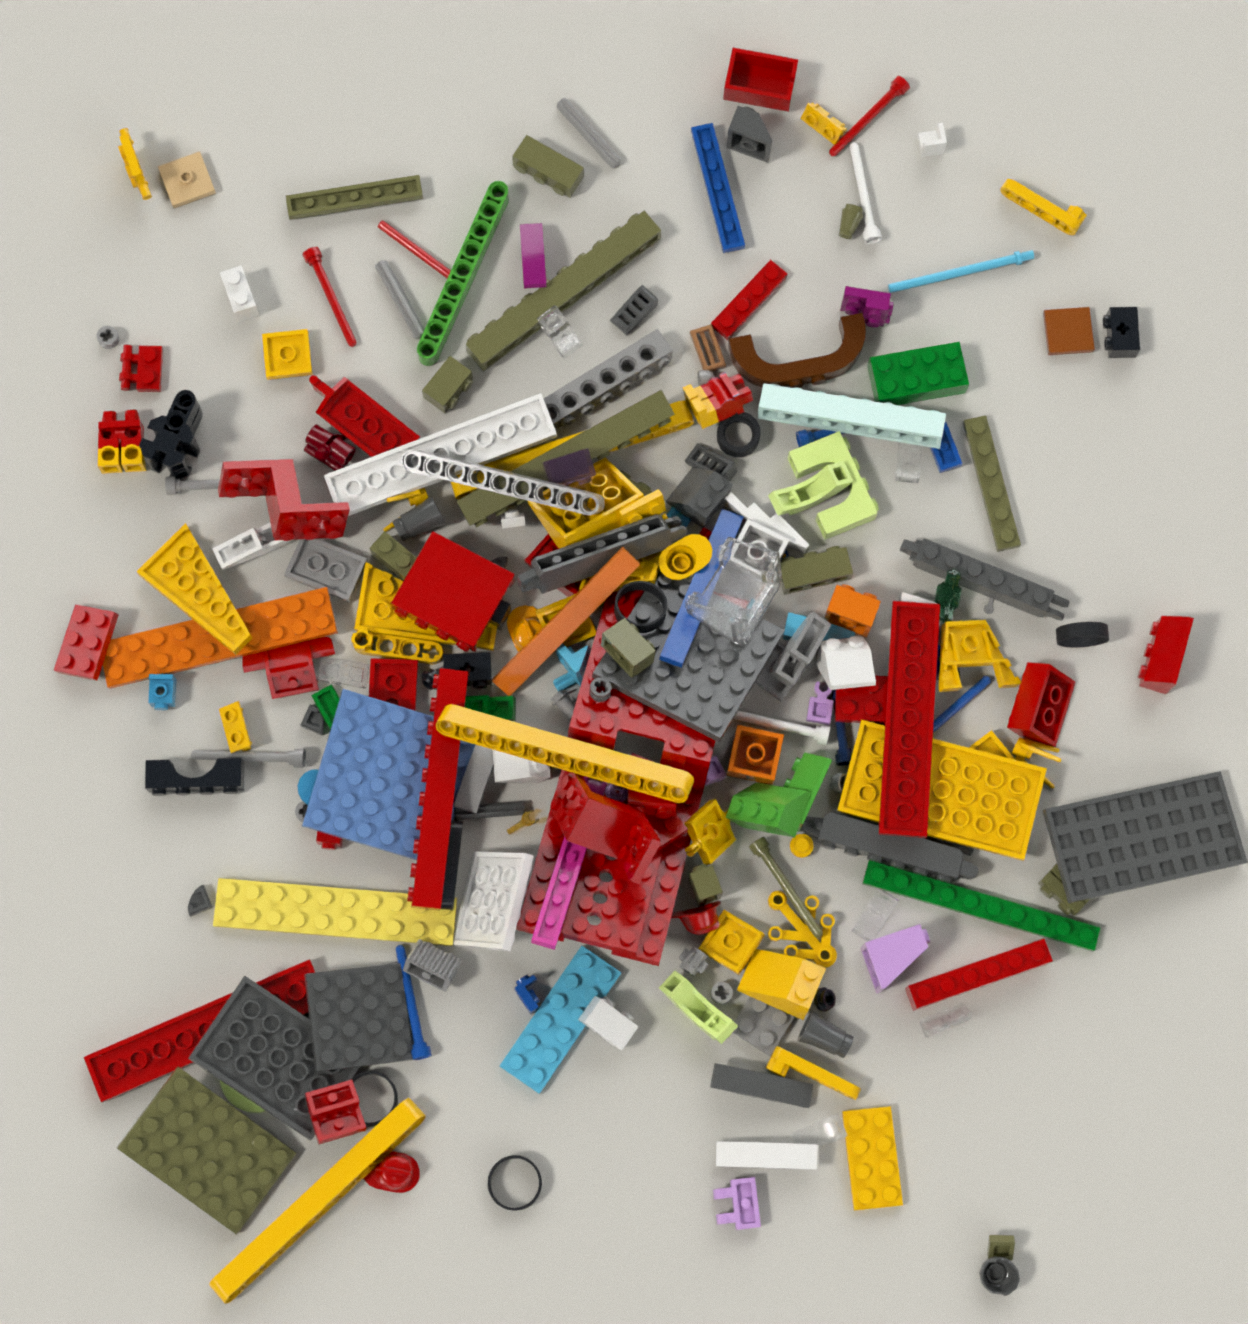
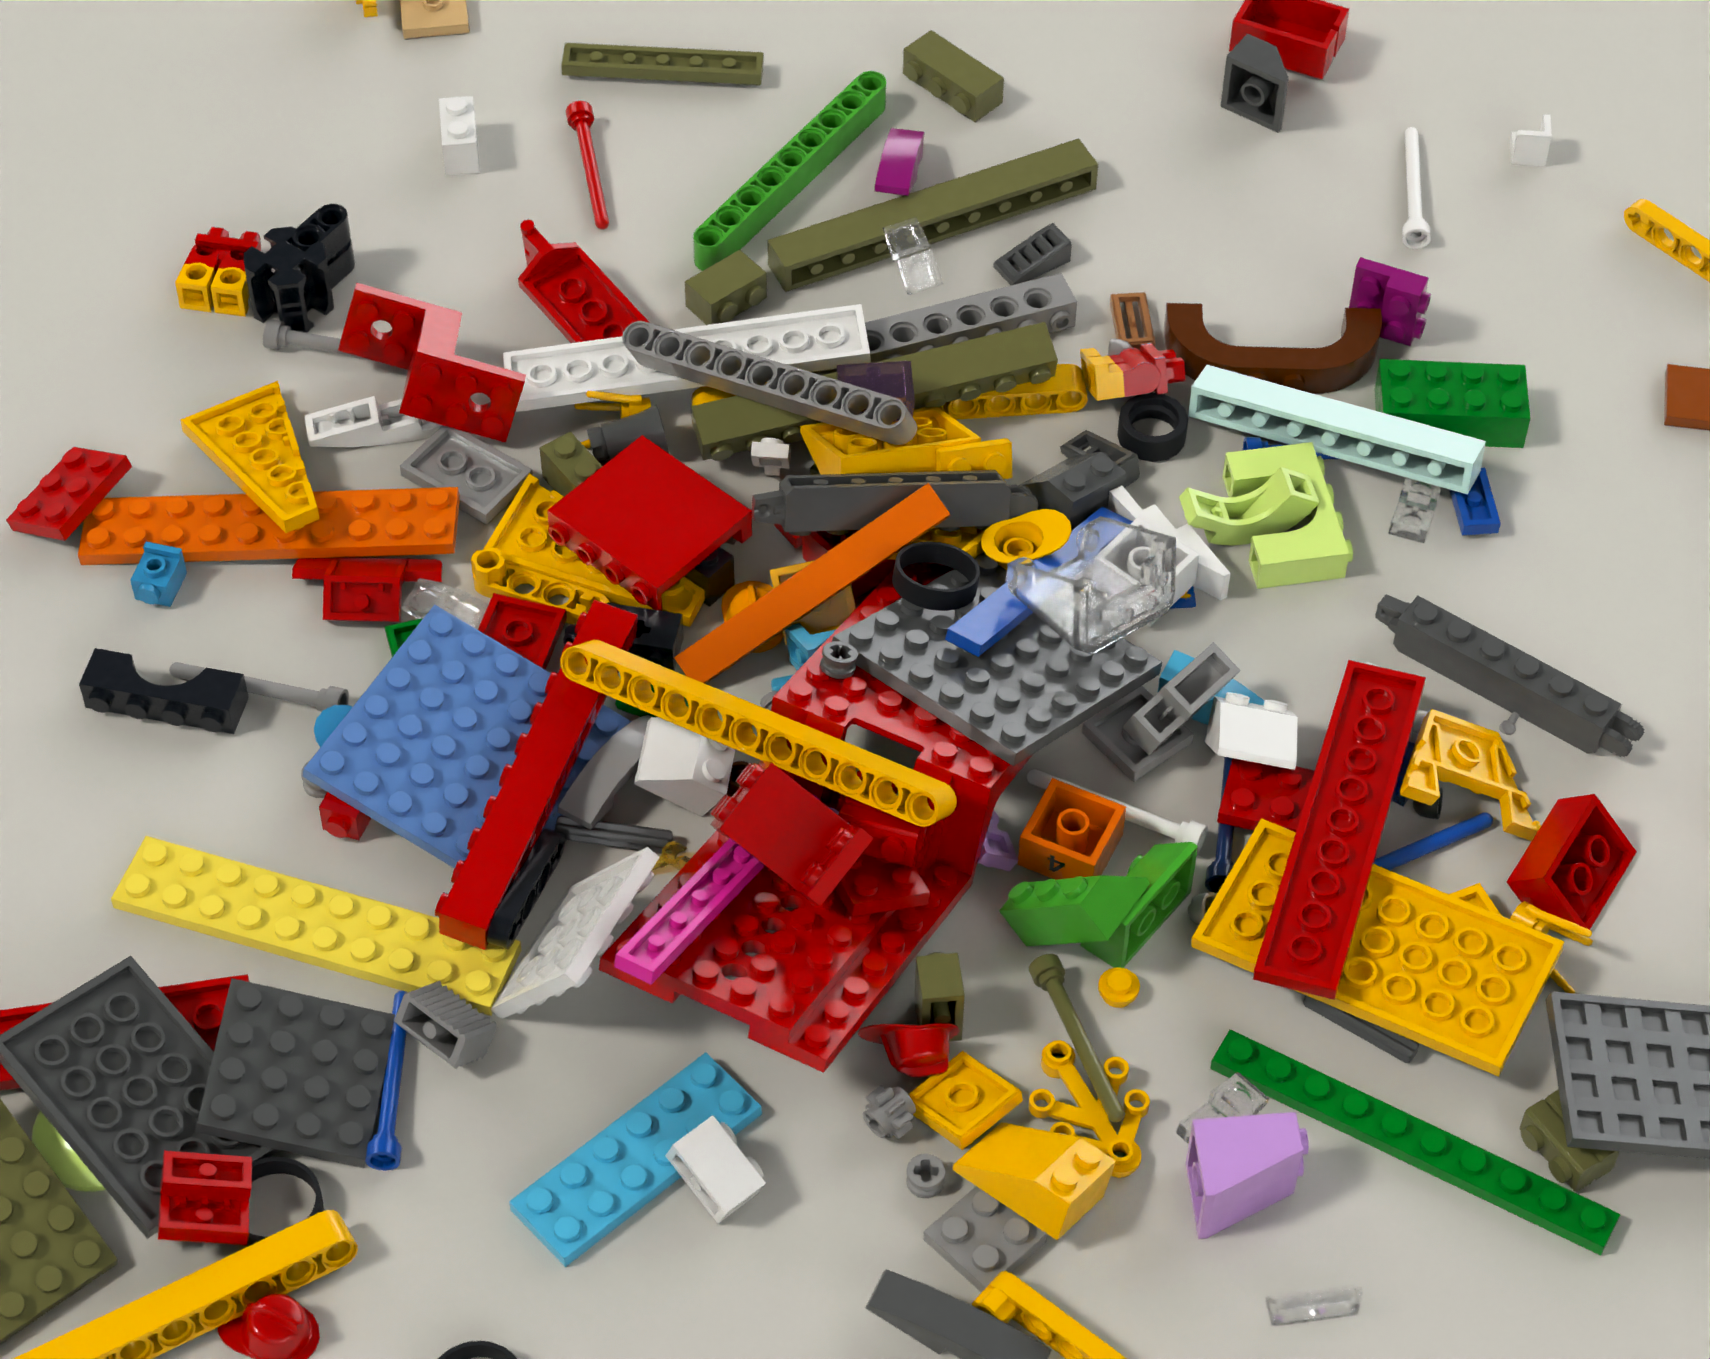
camera: 15 degrees right, 25 degrees down
(111, 343) = (253, 155): light grey bush -> none
(149, 368) = (296, 201): red plate -> none
(199, 901) = (103, 866): dark grey tile -> none
(235, 727) = (251, 641): yellow hinge -> none
(287, 354) = (497, 213): yellow plate -> none
(313, 720) = (373, 659): dark grey tile -> none
(328, 448) = (523, 324): dark red pin -> none
(400, 299) = (688, 180): light grey axle -> none
(413, 248) = (725, 132): bar -> none
(527, 997) = (589, 1098): blue bracket -> none
(588, 133) = (1023, 54): light grey axle -> none
(628, 647) = (899, 609): brick -> none
(697, 1007) = (873, 1180): yellowish green arch -> none
(709, 832) = (966, 920): yellow plate -> none
(717, 188) = (1196, 143): blue plate -> none
(749, 299) = (1212, 274): red plate -> none
(815, 570) = (1232, 616): olive brick -> none
(818, 119) = (1371, 98): yellow hinge -> none
(820, 708) = (1198, 798): lavender plate -> none
(824, 999) = (1103, 1220): black plate -> none
(825, 1035) = (1090, 1273): dark grey plant -> none
(850, 220) = (1387, 209): olive cone -> none
(852, 609) = (1281, 665): orange brick -> none
(898, 87) = (1491, 78): red piece -> none
(909, 852) = (1272, 1015): dark grey hinge -> none
(948, 595) = (1444, 681): clear green axle -> none
(978, 974) = (1386, 1237): red brick -> none
(991, 483) = (1543, 565): olive plate -> none
(1017, 258) = (1633, 298): medium azure bar -> none
(1082, 634) = (1658, 748): black tyre -> none

